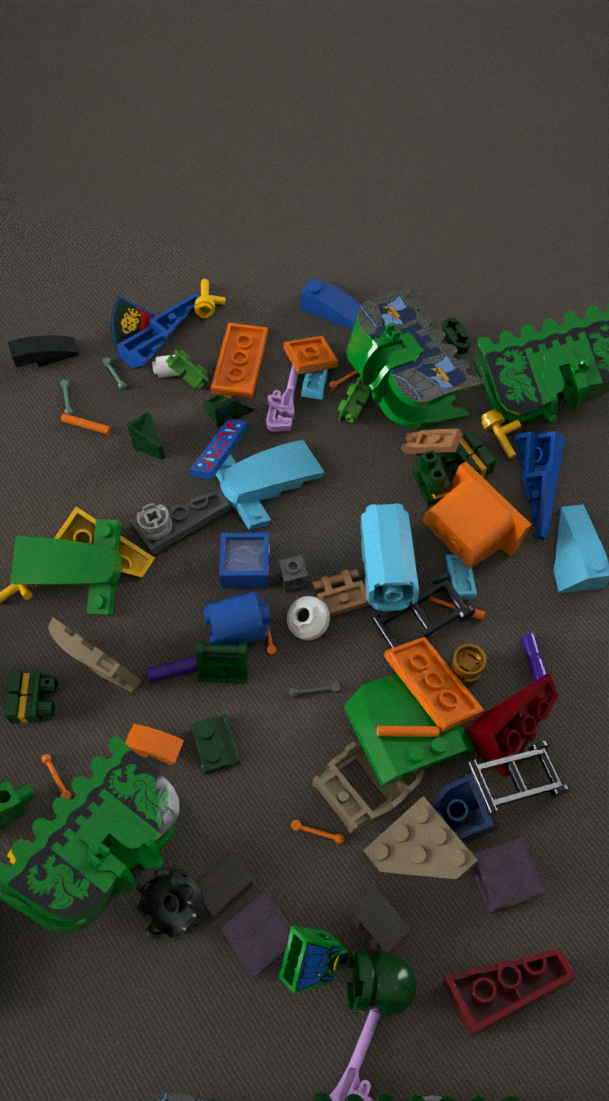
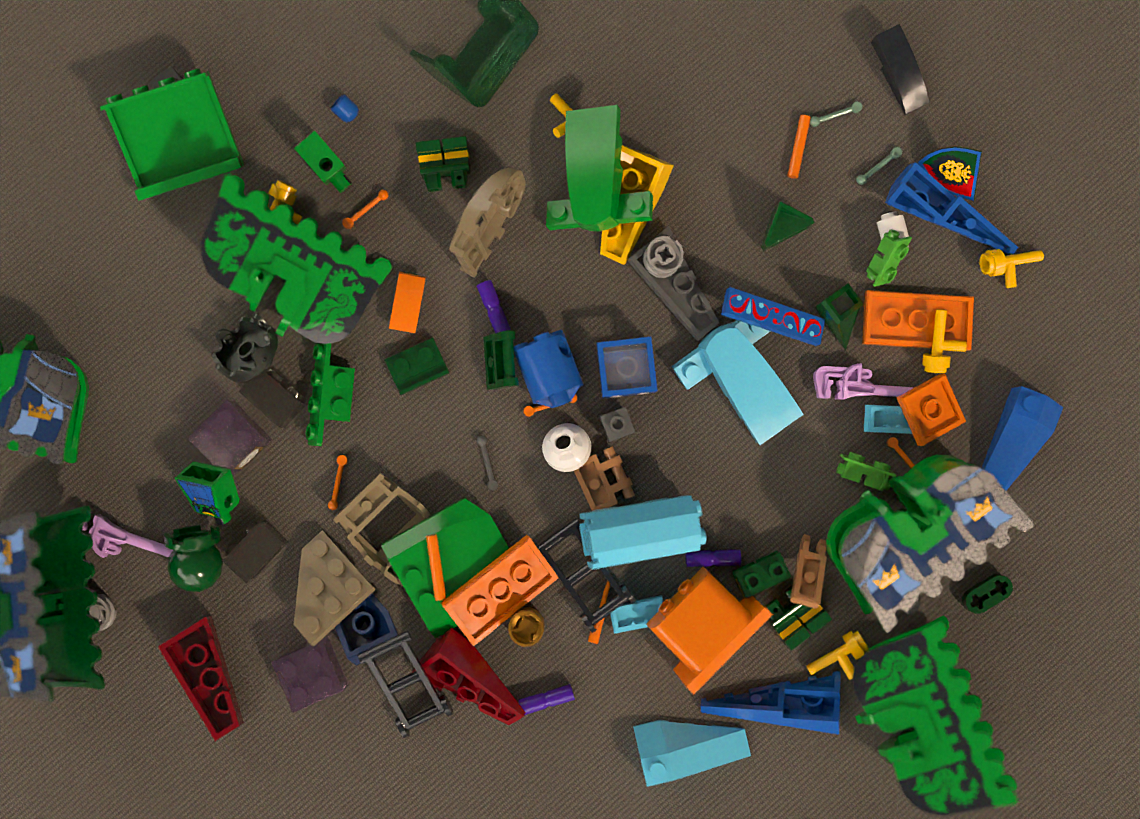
camera: 85 degrees right, 25 degrees up
(228, 829) = (330, 394): none -> green bracket
(274, 347) = (937, 361): none -> yellow piece
(416, 512) = (718, 558): none -> dark purple piece

